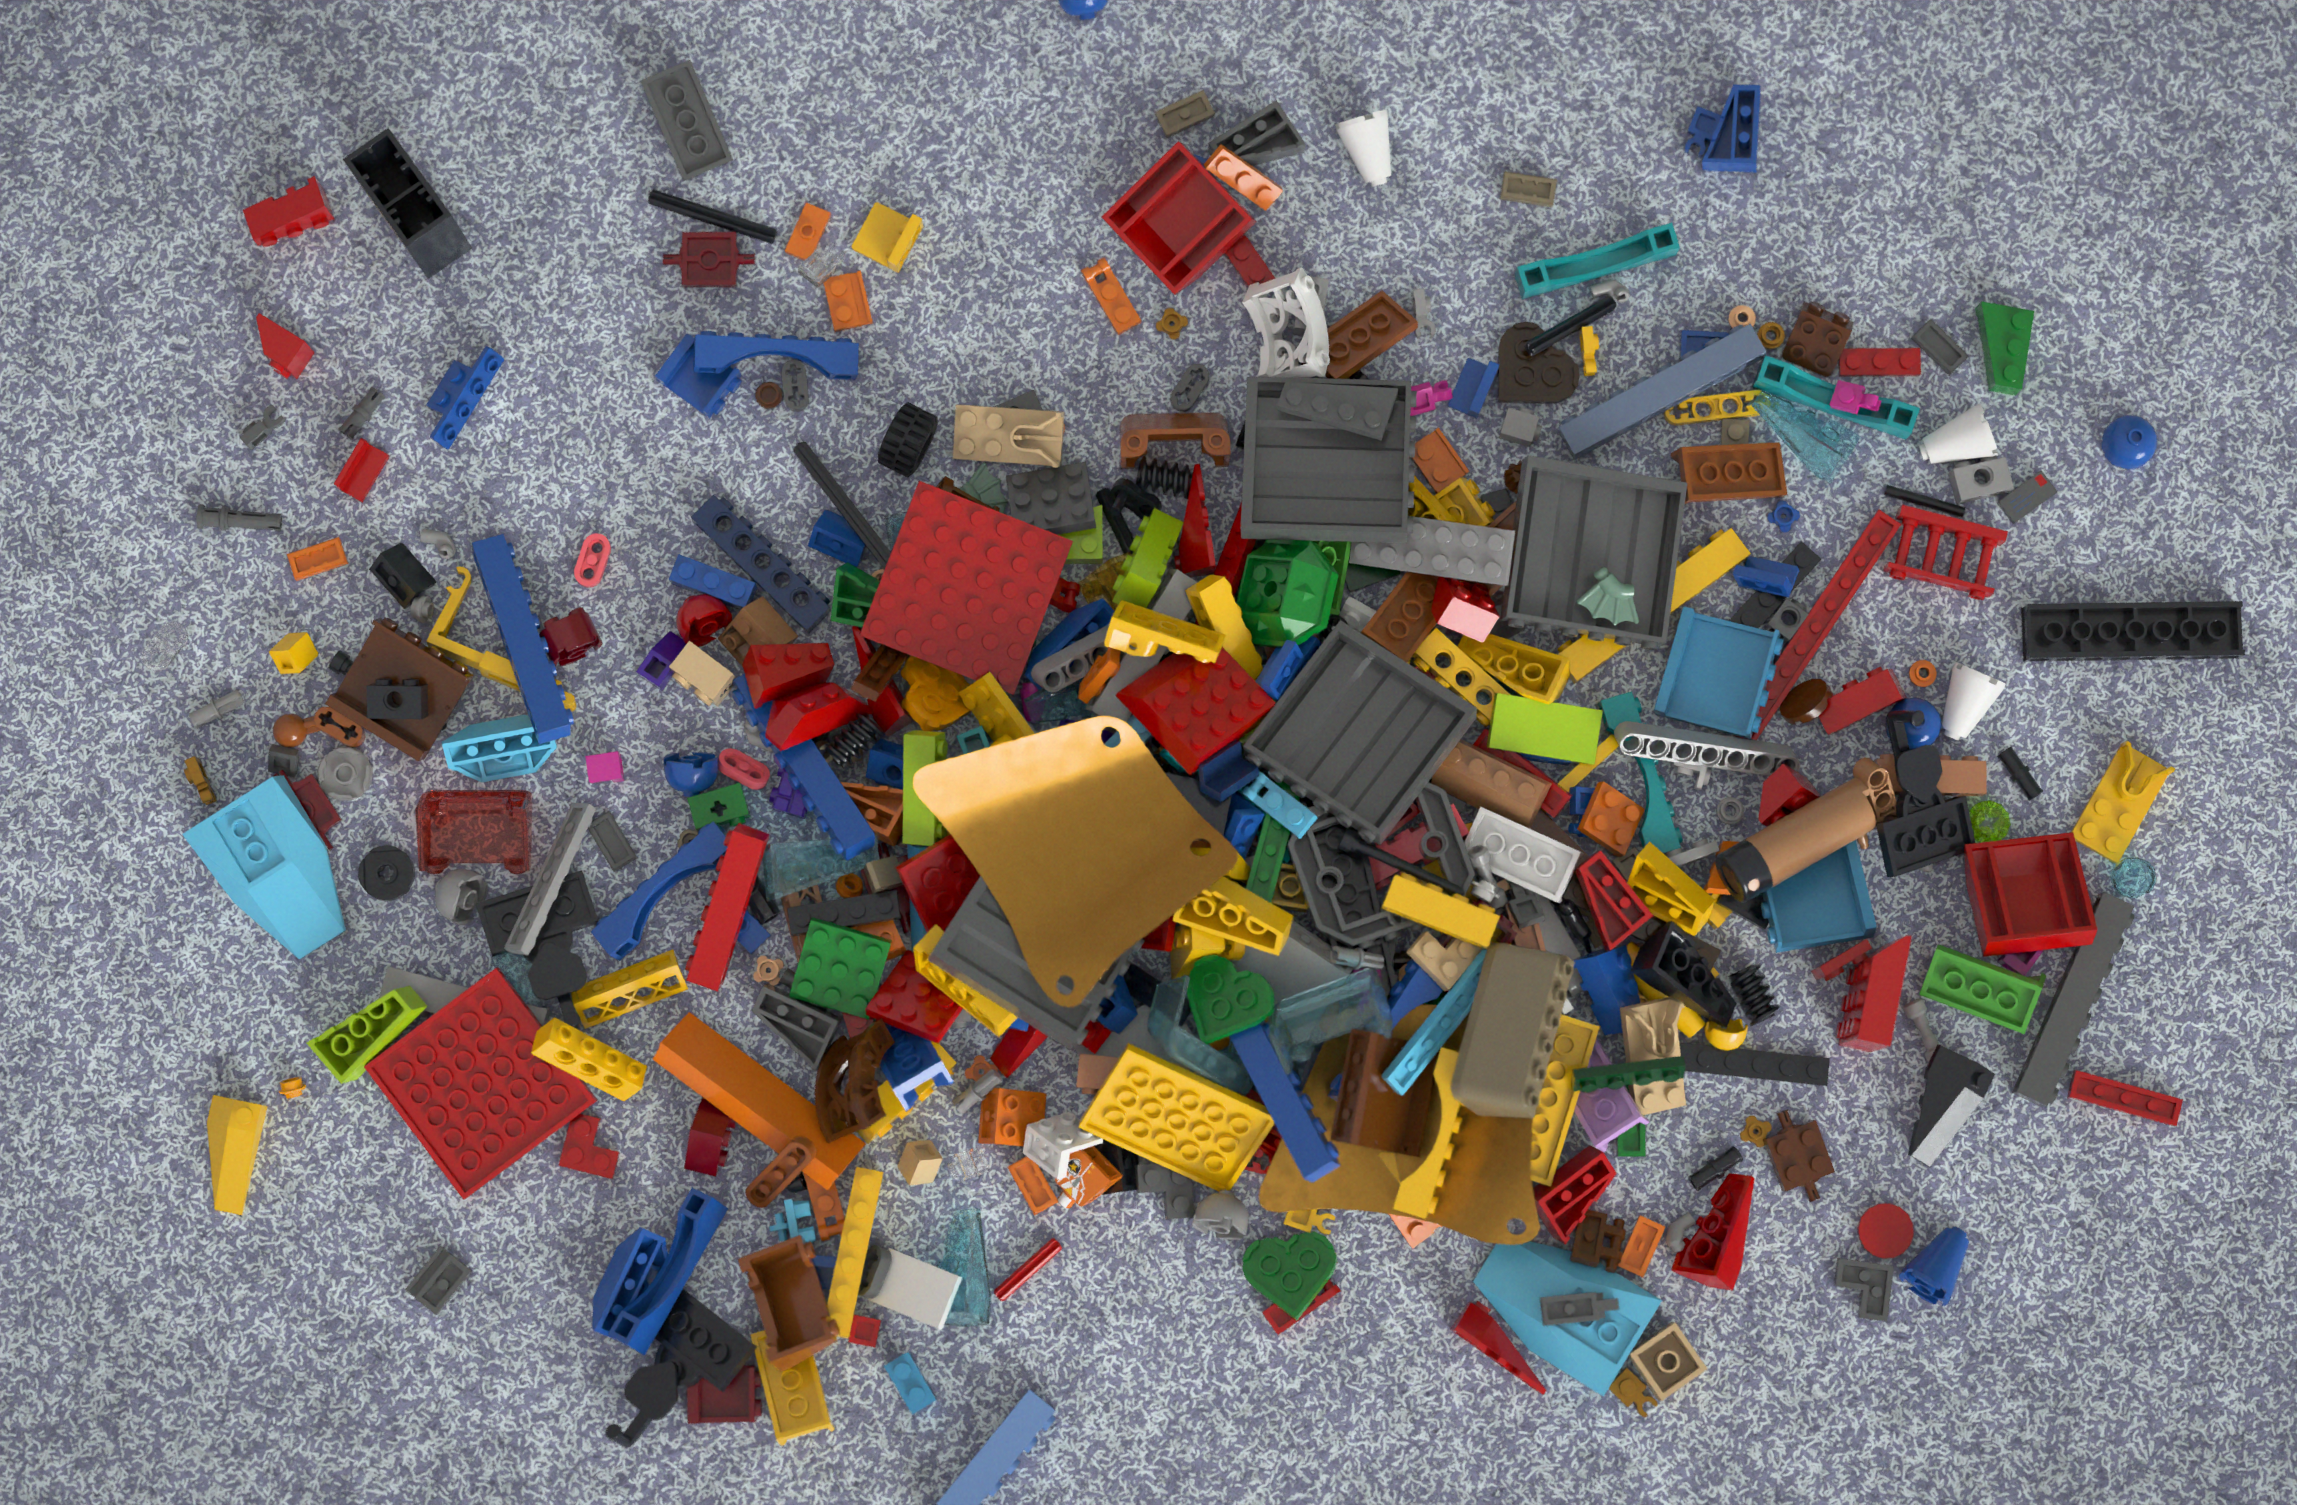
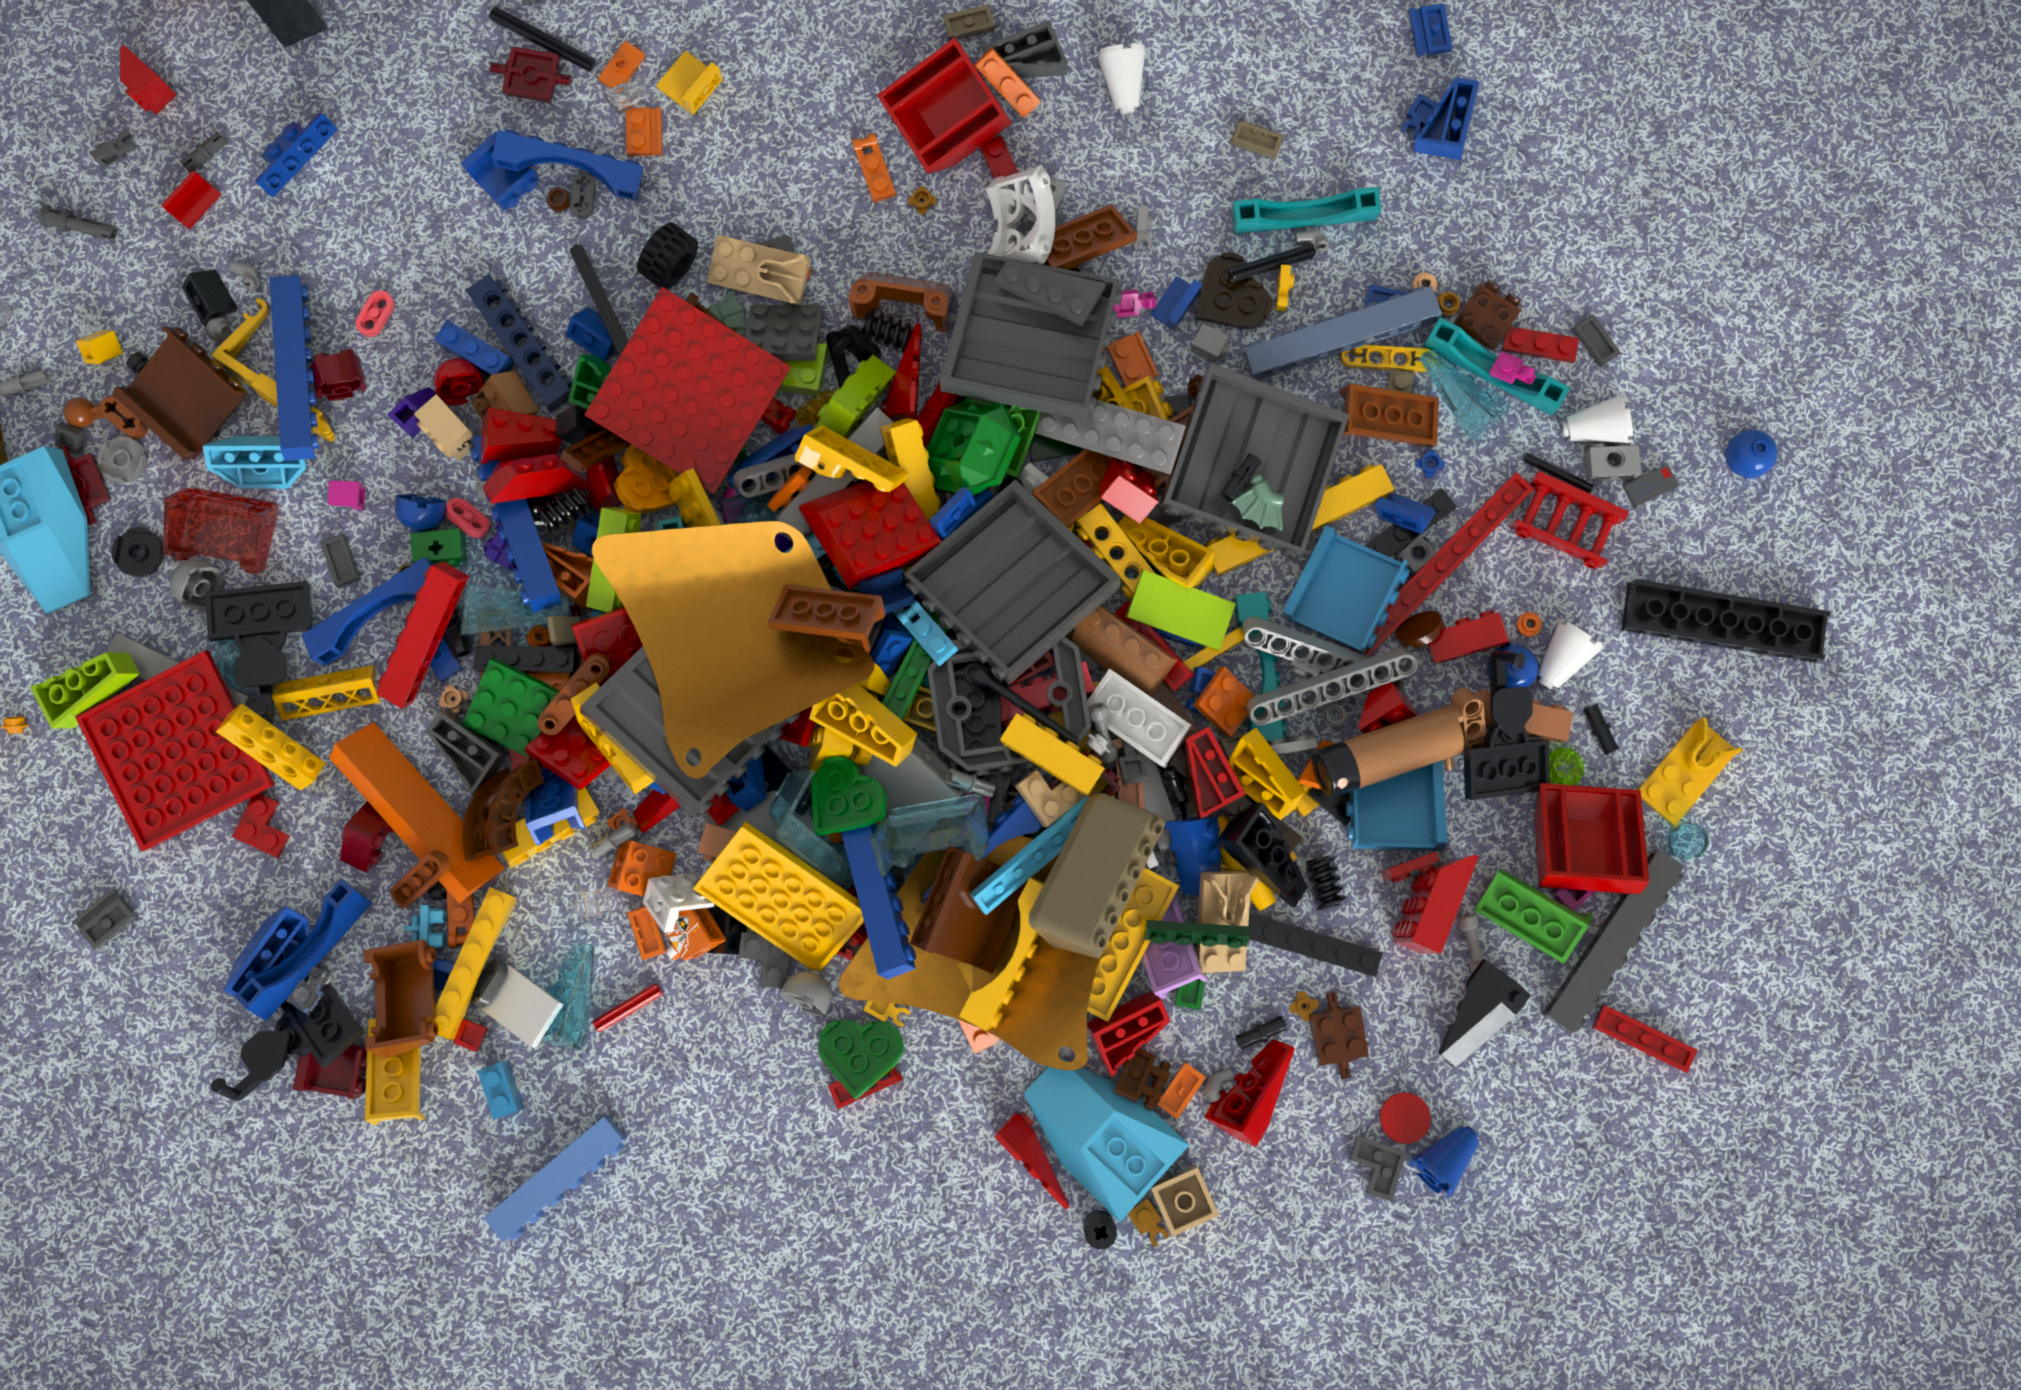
camera: 15 degrees right, 0 degrees up
(317, 559) = (138, 270): orange plate -> none
(381, 705) = (161, 401): black brick -> none
(550, 878) = (269, 588): light grey plate -> none
(682, 1318) = (308, 993): none -> clear plate
(845, 646) = (574, 425): none -> black panel
(900, 955) = (560, 708): none -> dark orange plate
(920, 1162) = (550, 893): tan panel -> none
(1174, 805) = (828, 613): none -> dark orange plate
(1195, 391) = (931, 262): dark grey beam -> none
(1575, 1308) = (1109, 1137): dark grey hinge -> none
(1576, 1416) = (1104, 1239): none -> black piece
(1583, 574) = (1249, 465): none -> black pin
(1696, 31) = (1430, 30): none -> blue plate
(1726, 1038) = (1290, 917): yellow hair -> none
(1735, 782) = (1343, 688): none -> light grey beam
(2005, 345) = (1655, 347): green wedge -> none

